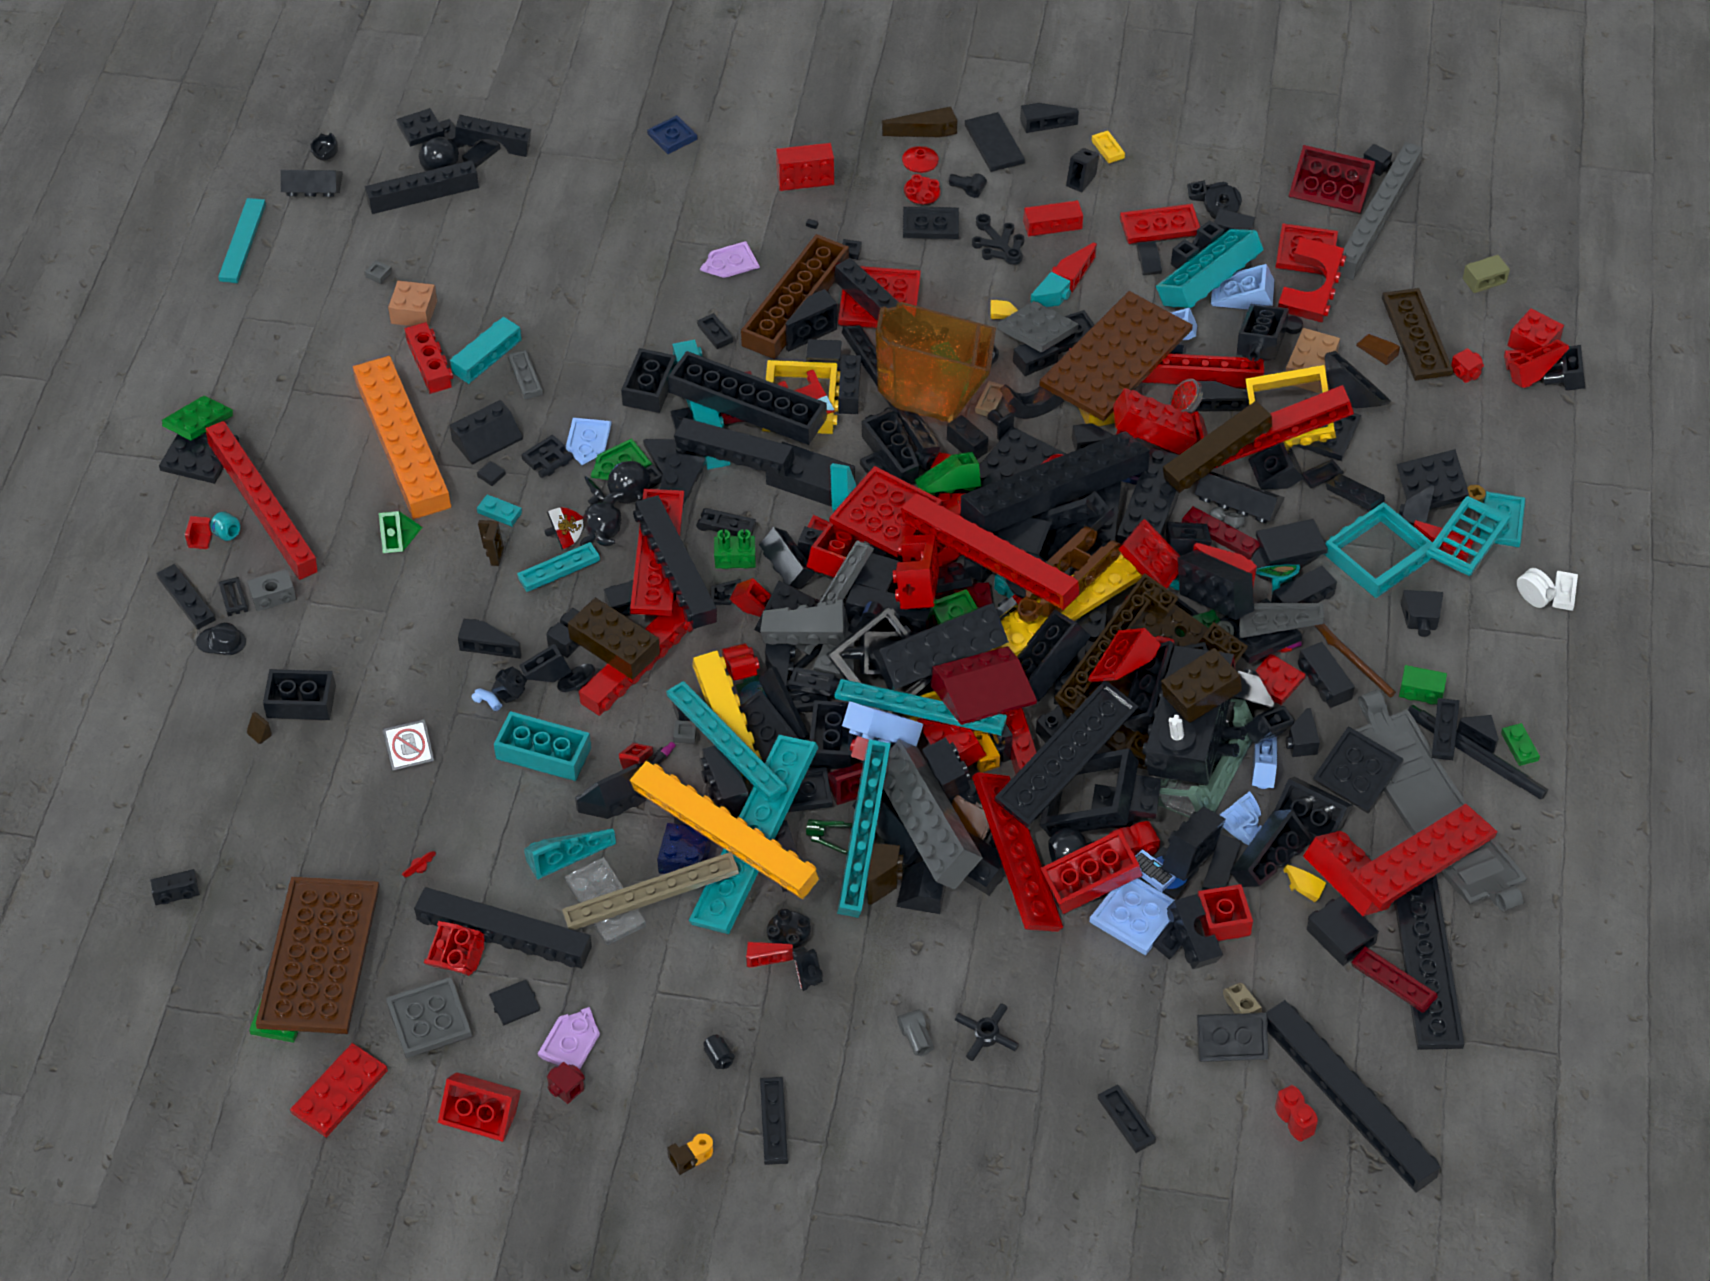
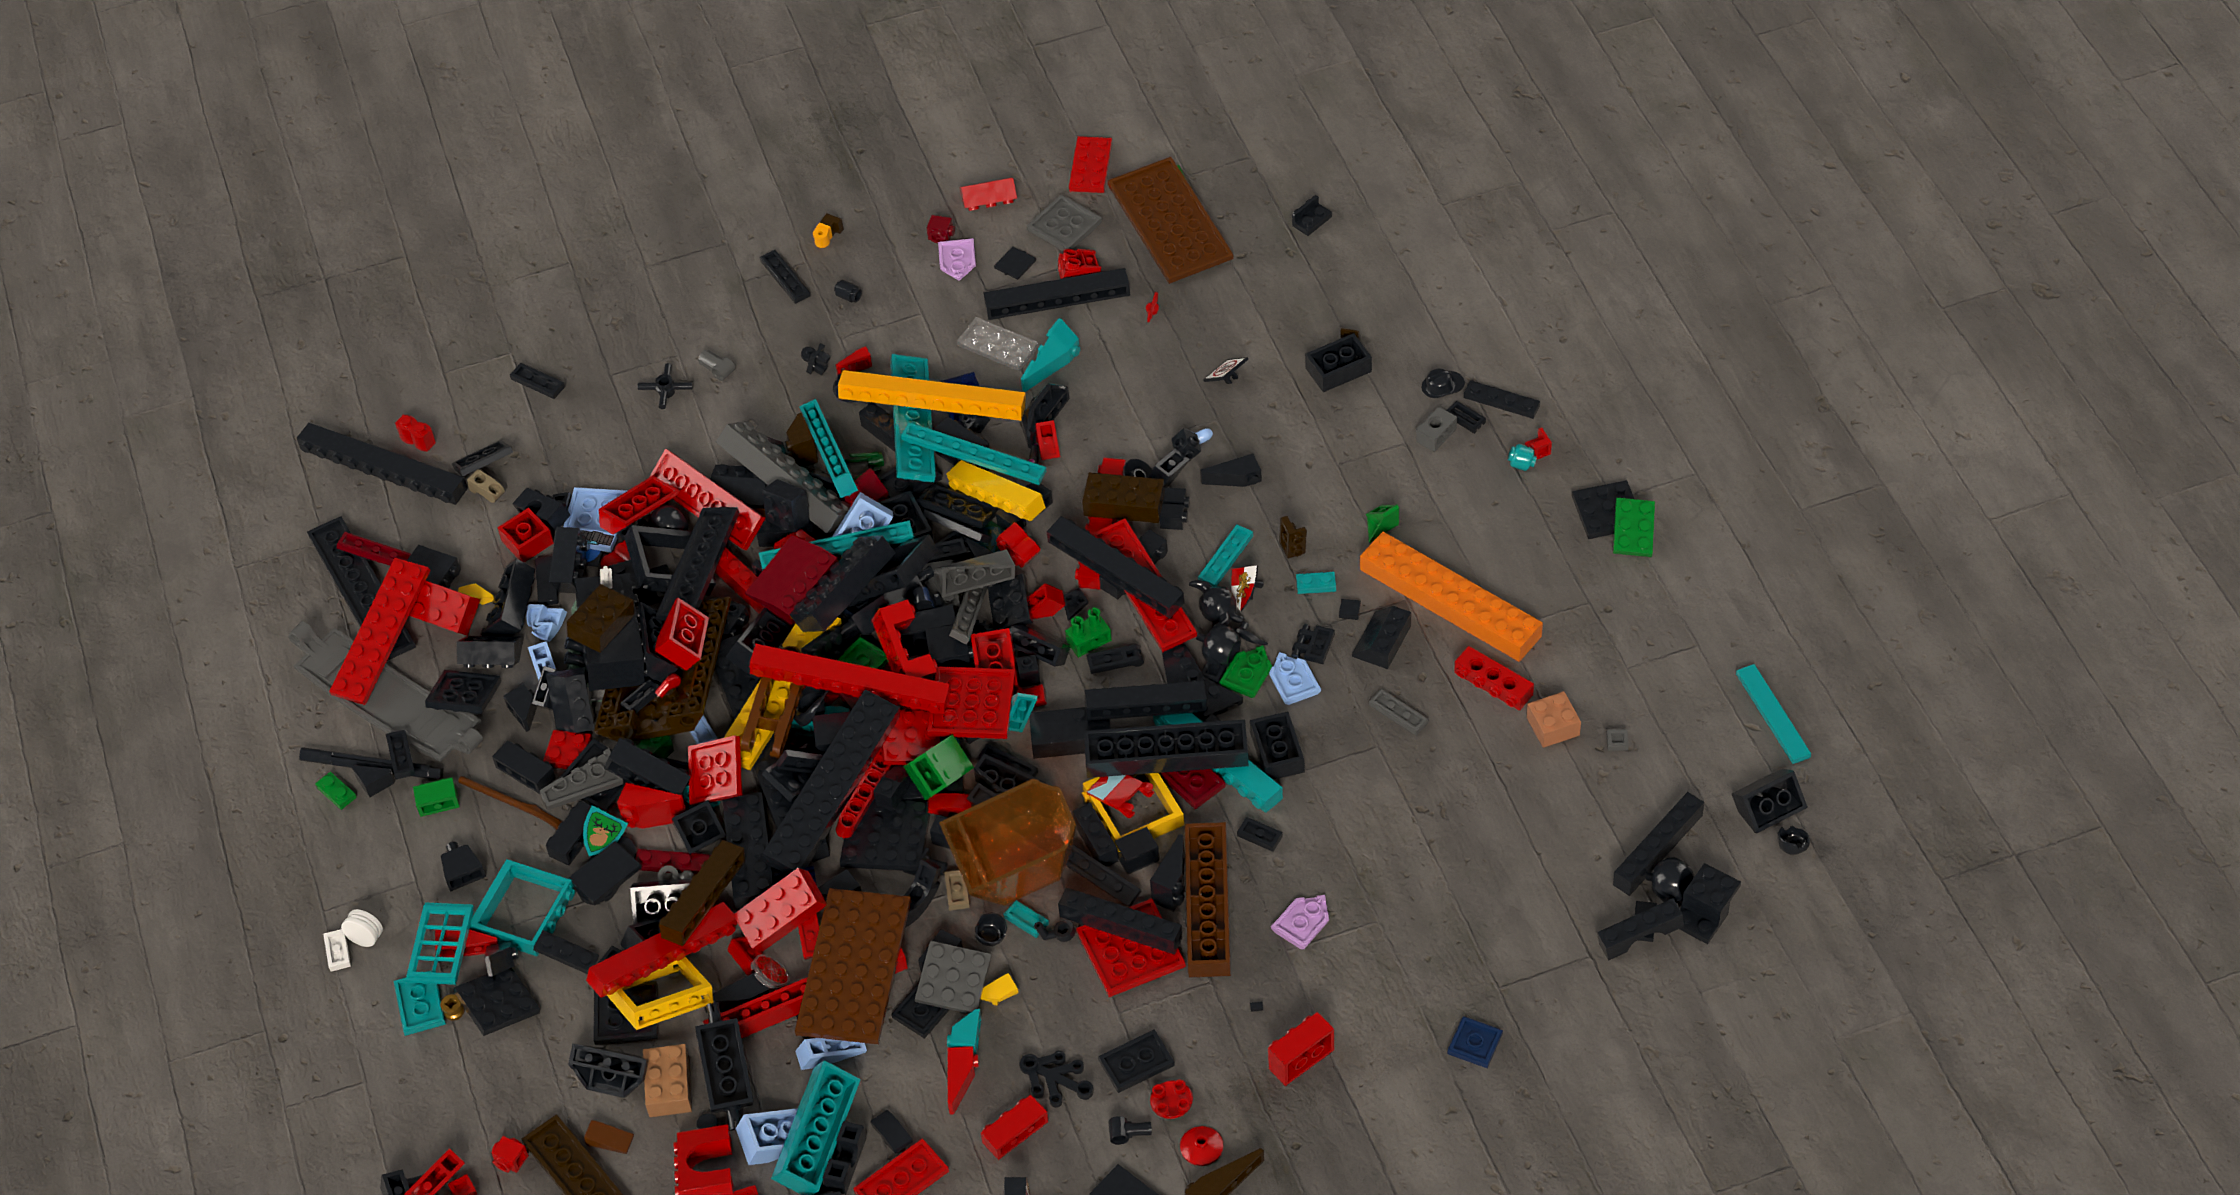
camera: 155 degrees right, 0 degrees up
(261, 500) = (1511, 482): red brick -> none
(485, 350) = (1449, 711): teal brick -> none
(542, 746) = (1123, 413): teal brick -> none
(650, 891) = (966, 344): dark tan plate -> none
(854, 248) = (1195, 988): black plate -> none

